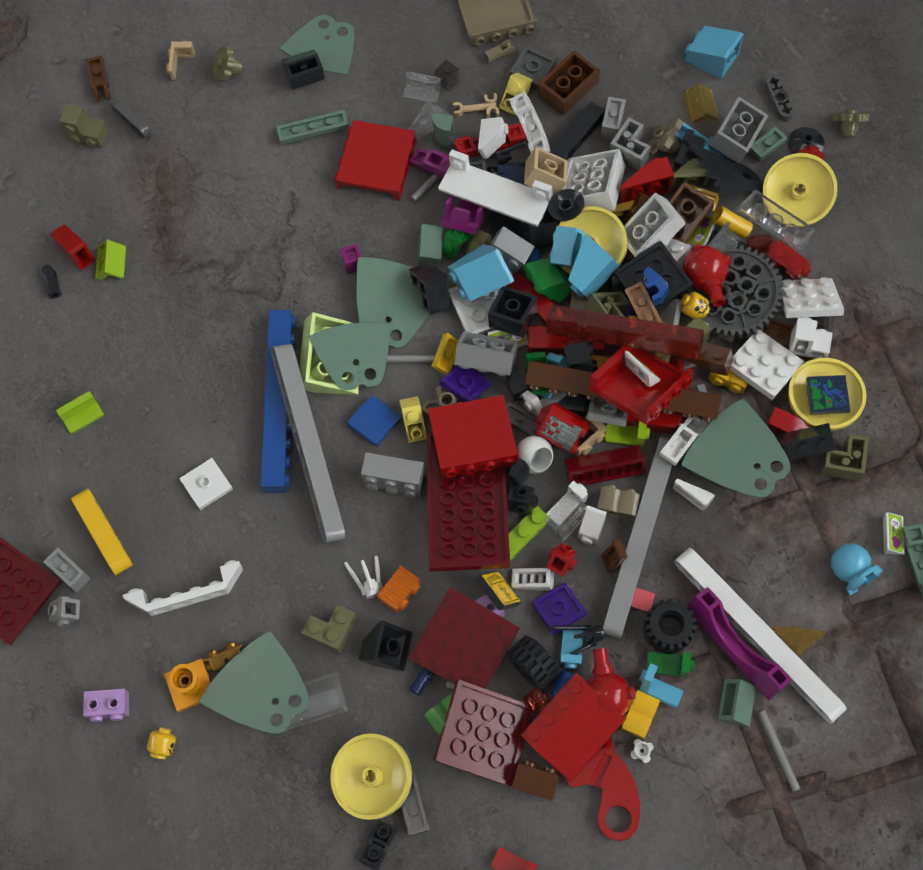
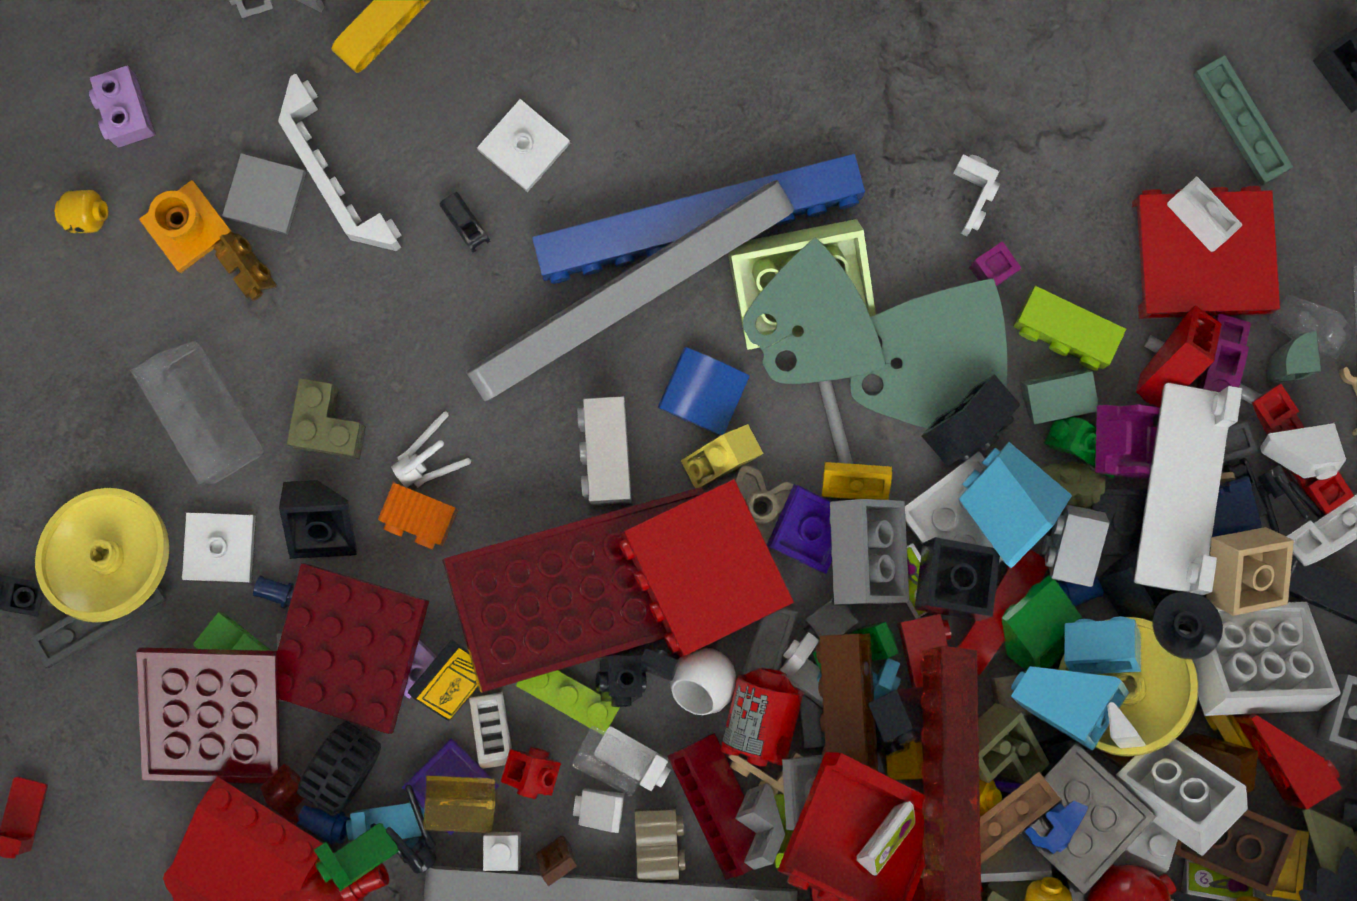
camera: 70 degrees right, 15 degrees up
(186, 635) = (264, 194): none -> light grey tile
(236, 525) = (463, 218): none -> black bar
(251, 682) = (207, 326): sand green piece -> none
(302, 252) = (976, 171): none -> white bracket
(356, 152) = (1204, 214): none -> white slope
(385, 710) = (218, 547): none -> white plate
(395, 232) = (1069, 329): none -> lime brick
(426, 179) = (1182, 356): none -> red slope
(536, 780) = (157, 818): reddish brown brick -> none
(570, 601) = (459, 804): none -> clear yellow panel
(587, 659) = (356, 857): none -> green bracket
(602, 586) = (502, 851): none -> white brick
(611, 242) = (1122, 730): none -> white slope
(615, 442) = (761, 816): none -> light grey slope

